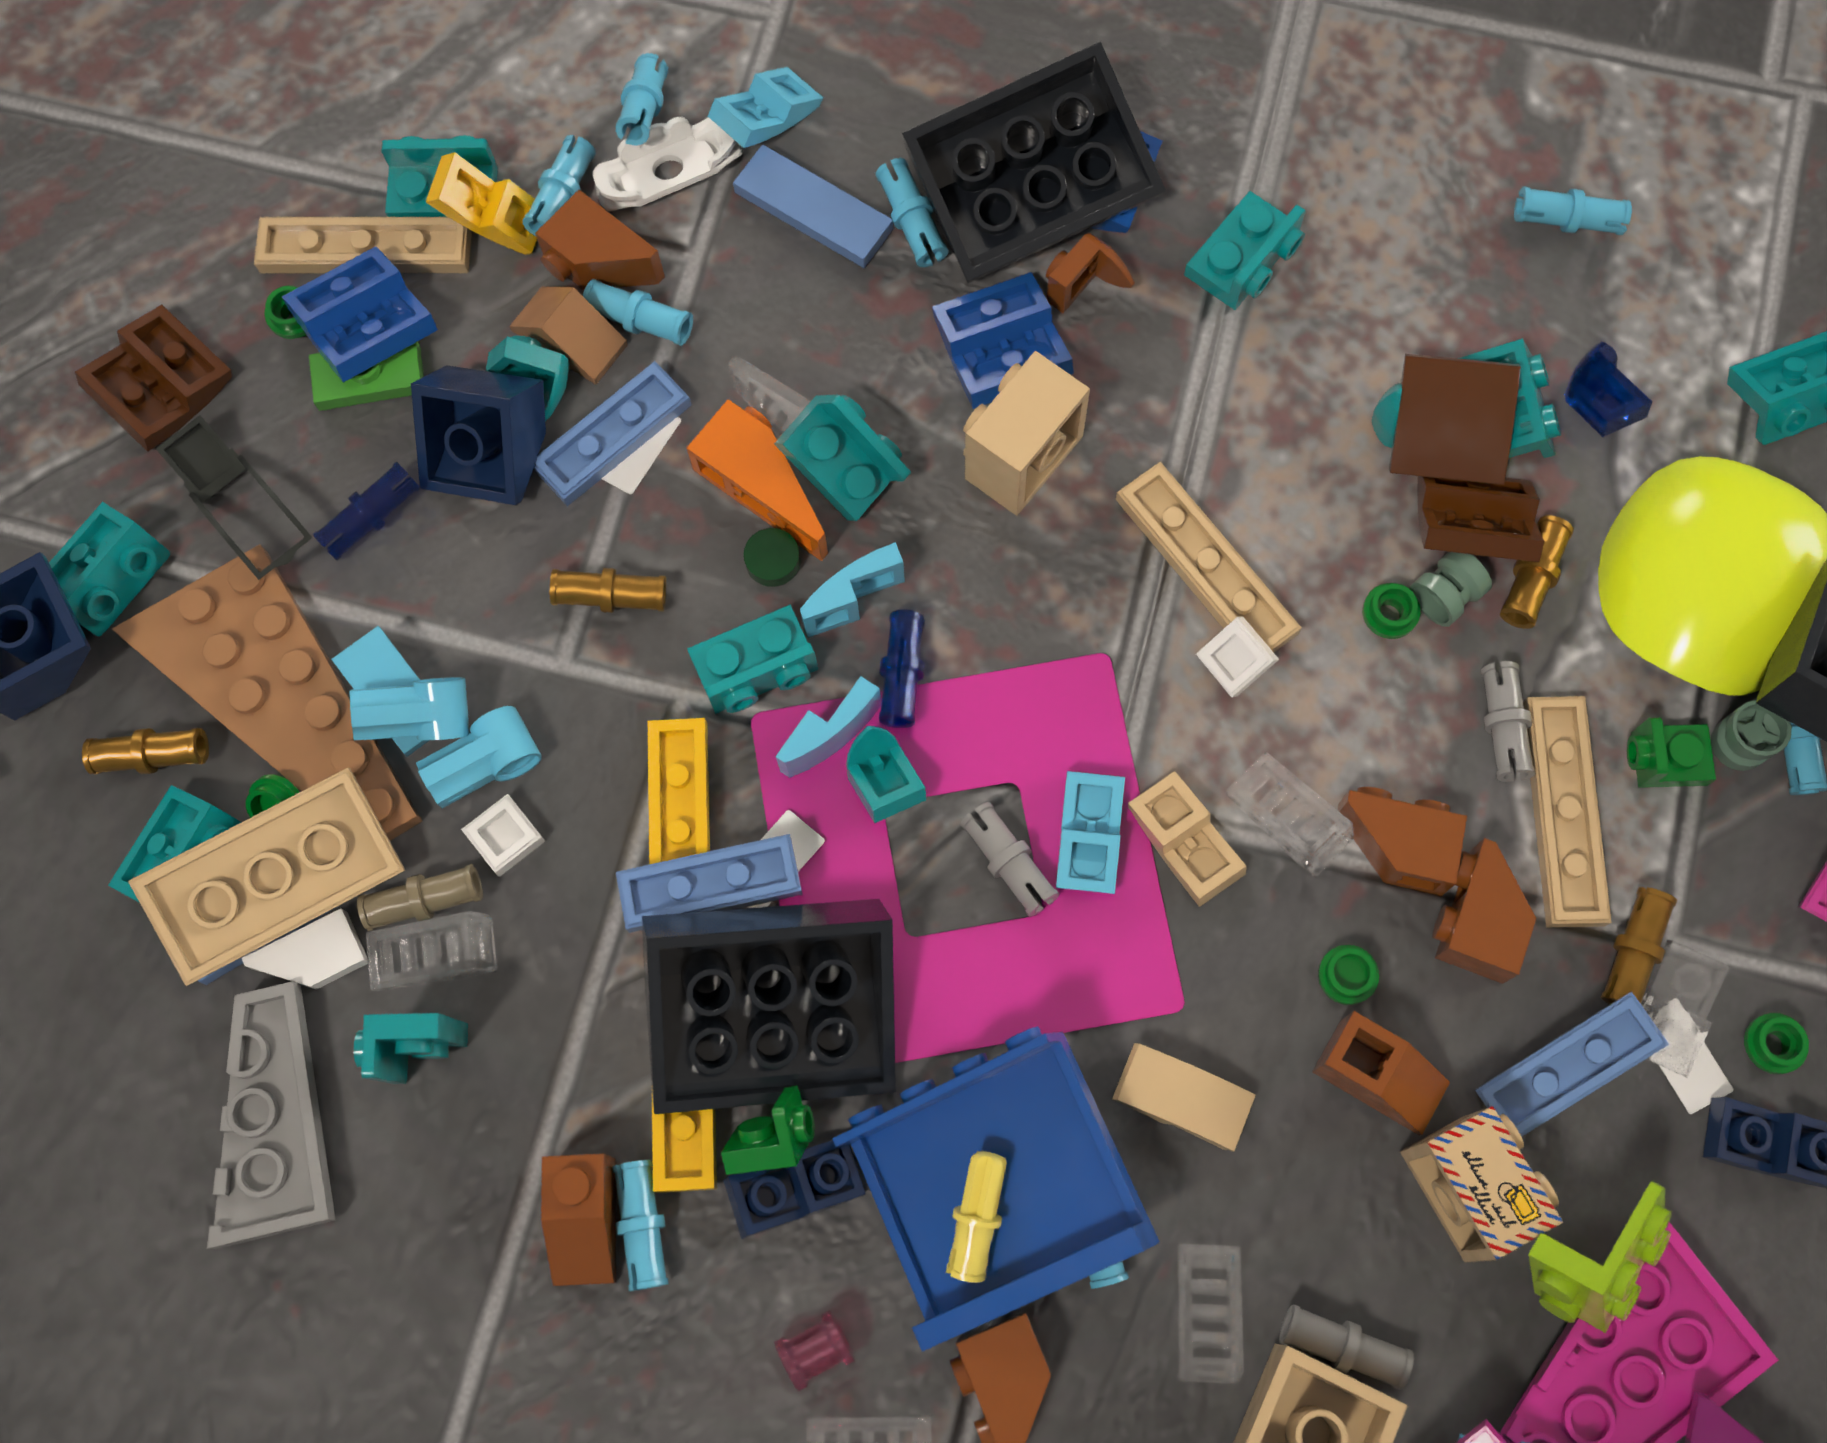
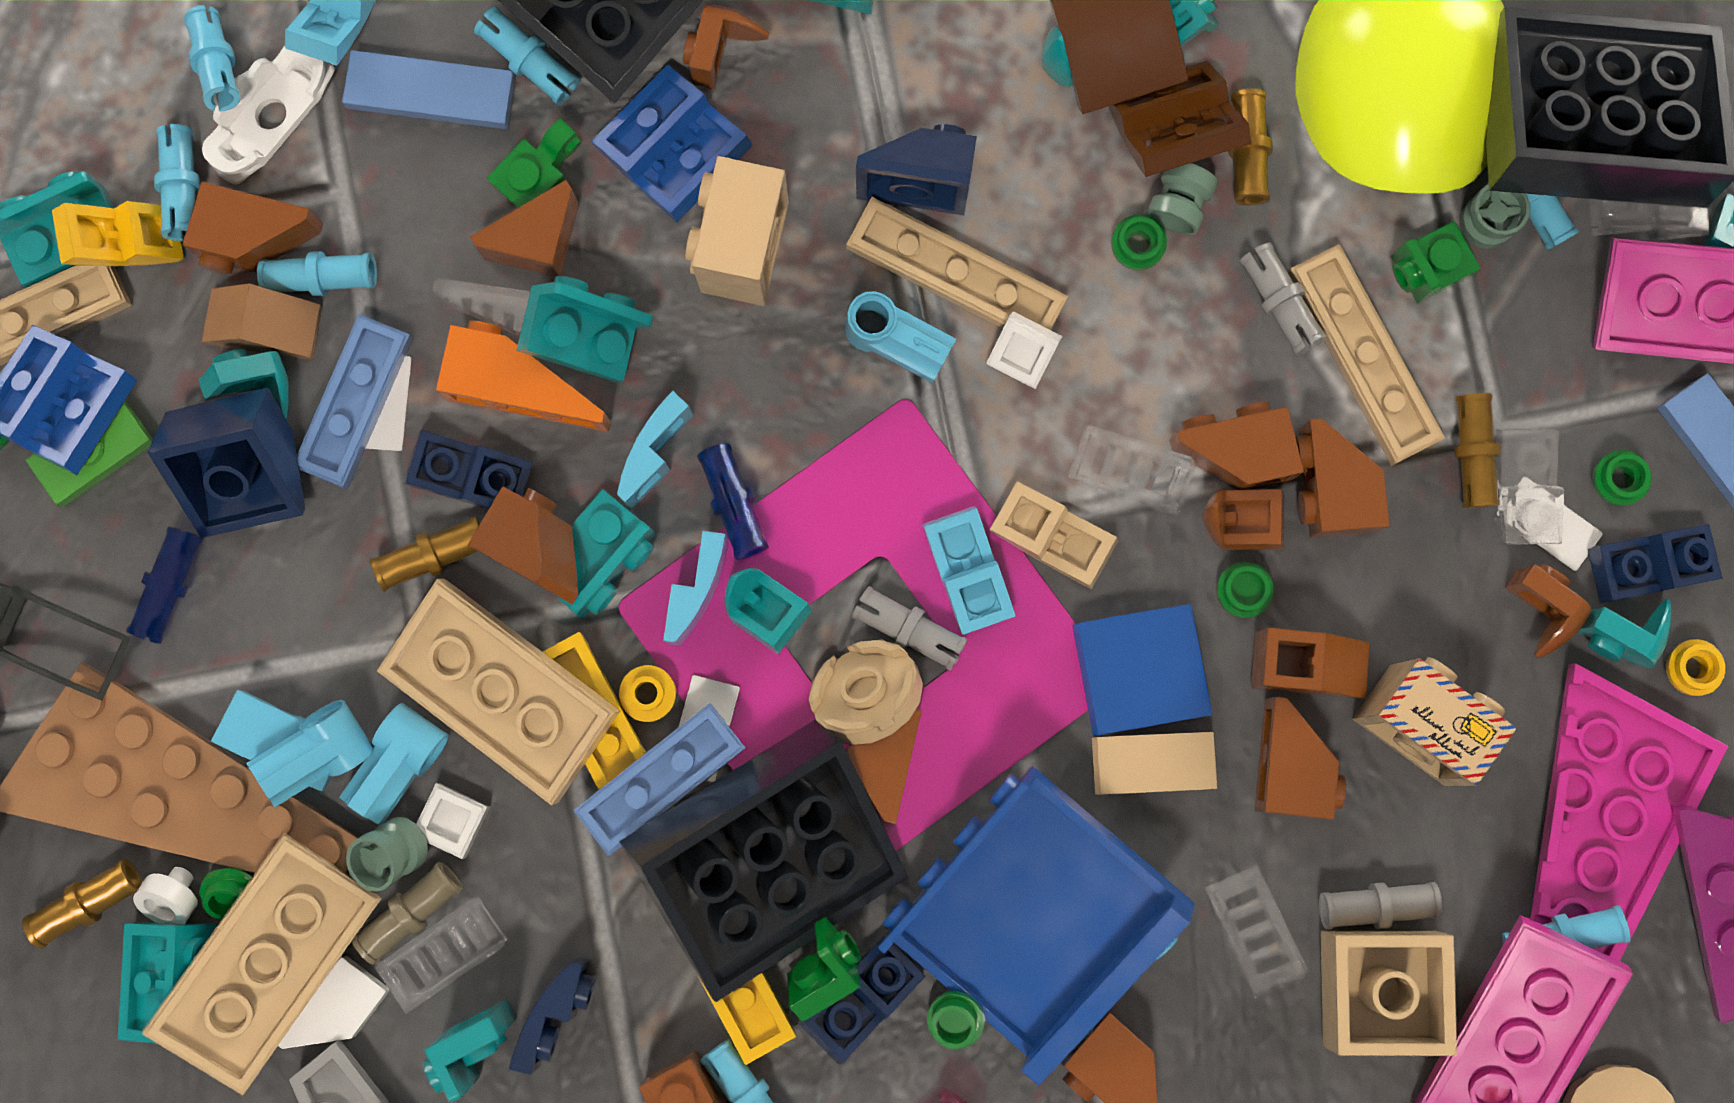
camera: 30 degrees left, 10 degrees up
(219, 779) = (167, 897): none -> white tile
(430, 832) = (386, 854): none -> sand green wheel
(518, 1042) = (560, 1001): none -> dark blue slope
(605, 738) = (498, 691): none -> tan tile
(678, 537) = (464, 470): none -> dark blue slope
(701, 616) = (530, 541): none -> dark orange slope
(746, 819) = (665, 693): none -> yellow plate
(772, 557) = (562, 451): dark green tile -> none
(840, 358) = (533, 234): none -> dark orange slope
(866, 313) = (534, 171): none -> green plate
(874, 1250) = (955, 1020): none -> green plate
(926, 966) = (885, 767): none -> dark orange slope
(939, 894) = (866, 692): none -> tan tile
(977, 1217) = (1032, 955): light yellow axle -> none
(1128, 595) = (904, 339): none -> medium azure piece
(1213, 454) = (920, 170): none -> dark blue slope
(1213, 1002) = (1142, 669): none -> blue slope
(1322, 1168) = (1295, 766): none -> dark orange slope
(1379, 907) = (1246, 519): none -> dark orange plate
(1574, 1064) = (1464, 581): medium blue tile -> none
(1596, 1293) = (1546, 772): lime bracket -> none
(1655, 1125) = (1549, 594): none -> dark orange plate
(1708, 1197) = (1619, 638): none -> teal plate
(1793, 1262) = (1711, 665): none -> yellow plate

